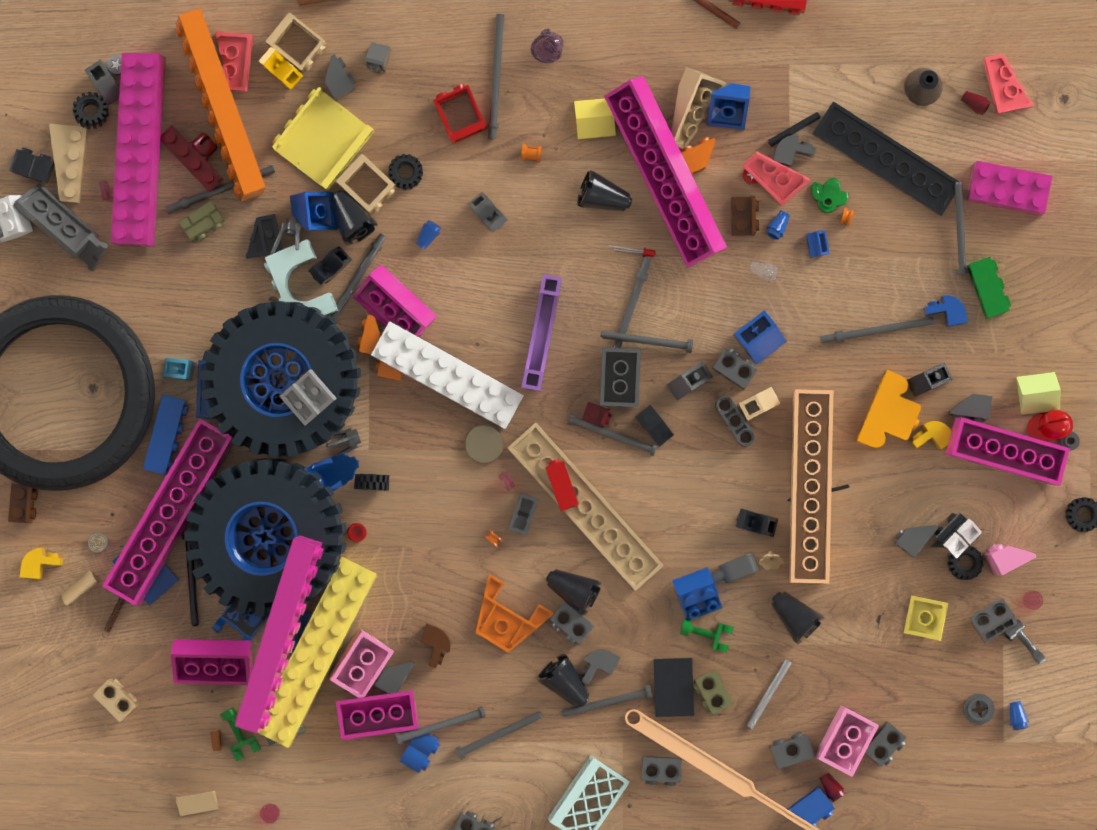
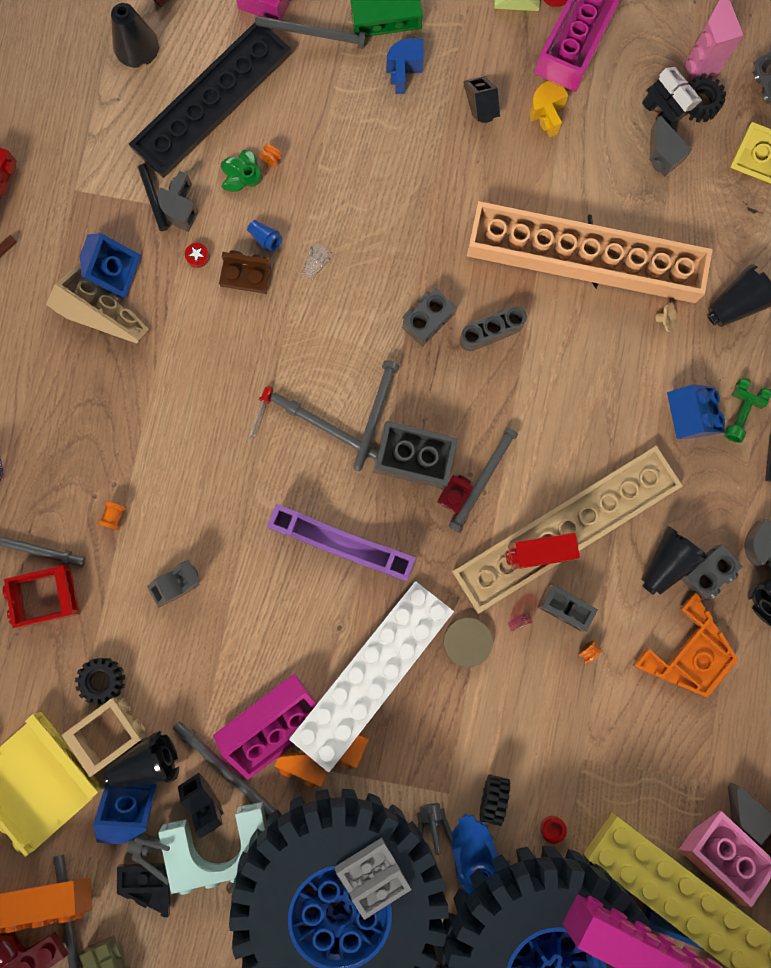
camera: 90 degrees left, 5 degrees down
(428, 234) = (187, 666): blue cone -> none
(436, 638) = (708, 748): reddish brown brick -> none
(594, 119) = (87, 429): light yellow slope -> none
(602, 194) = (181, 436): black cone -> none
(654, 425) = (480, 426): black slope -> none
(665, 171) = (166, 353): dark pink brick -> none
(689, 380) = (434, 373): dark grey slope -> none
(698, 156) = (161, 313): orange slope -> none
(736, 569) = (672, 359): dark grey piece -> none
(756, 523) = (621, 324): black brick -> none
(758, 404) = (477, 297): tan slope -> none
(760, 337) = (394, 280): blue slope -> none
(776, 178) = (205, 225): coral wing -> none
(817, 244) = (296, 195): blue piece -> none
(840, 336) = (411, 188): dark grey bar -> none
(889, 413) = (513, 150): light orange brick -> none
(974, 407) = (521, 56): dark grey slope -> none
(1032, 600) = (754, 36): clear pink tile -> none

